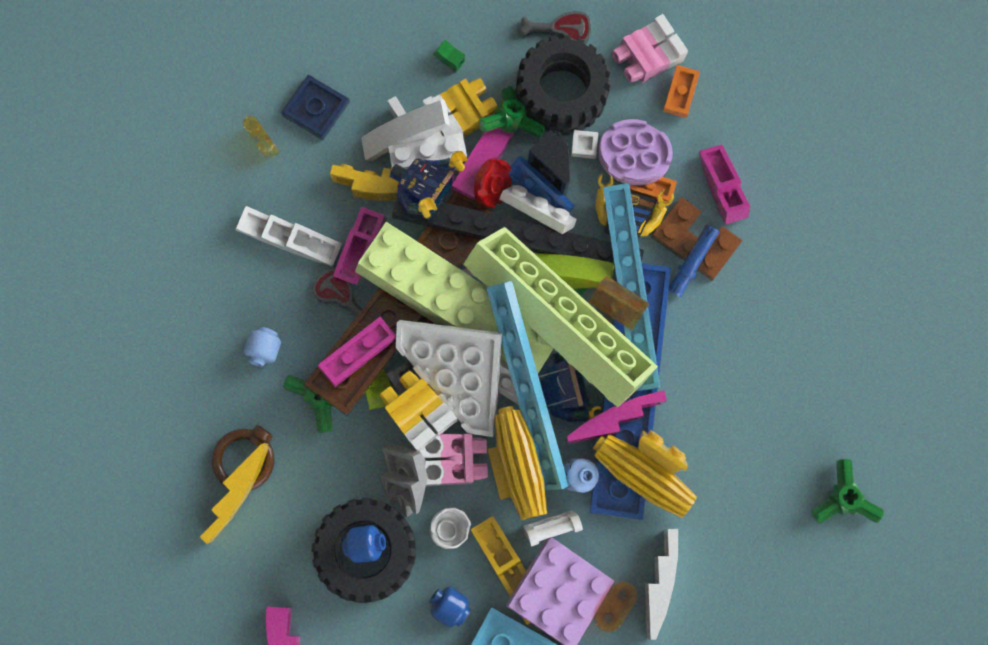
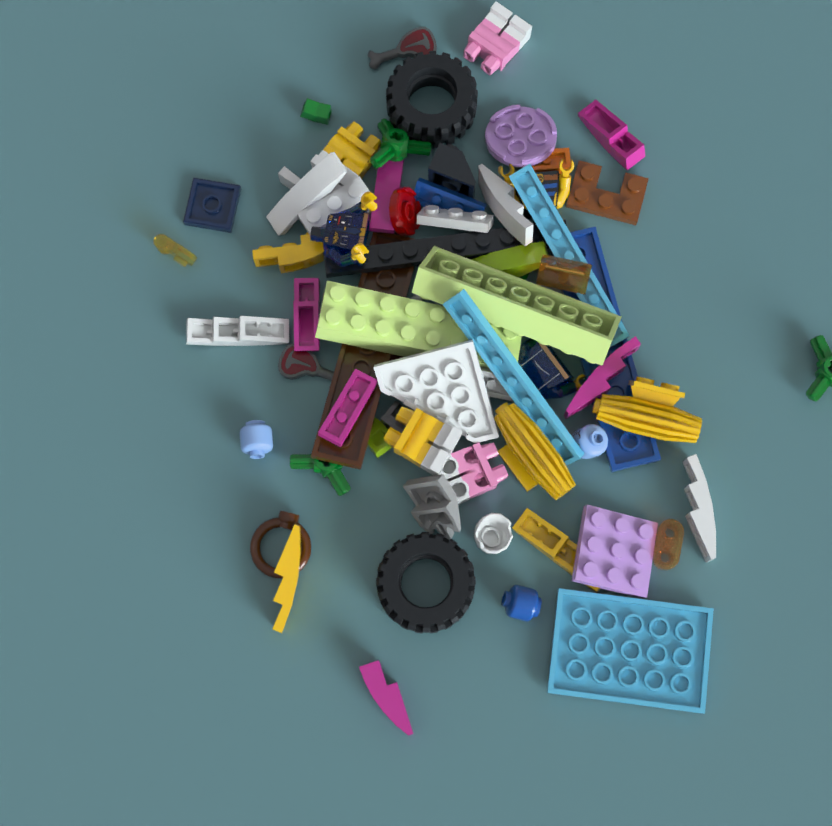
camera: 15 degrees left, 0 degrees up
(363, 544) = (426, 574): blue head -> none
(552, 527) = (584, 496): white plate -> none
(584, 144) = (472, 145): white plate -> none
(589, 213) = (507, 210): none -> white slope
(681, 91) = (540, 65): orange plate -> none
(693, 260) = (613, 212): blue pin -> none

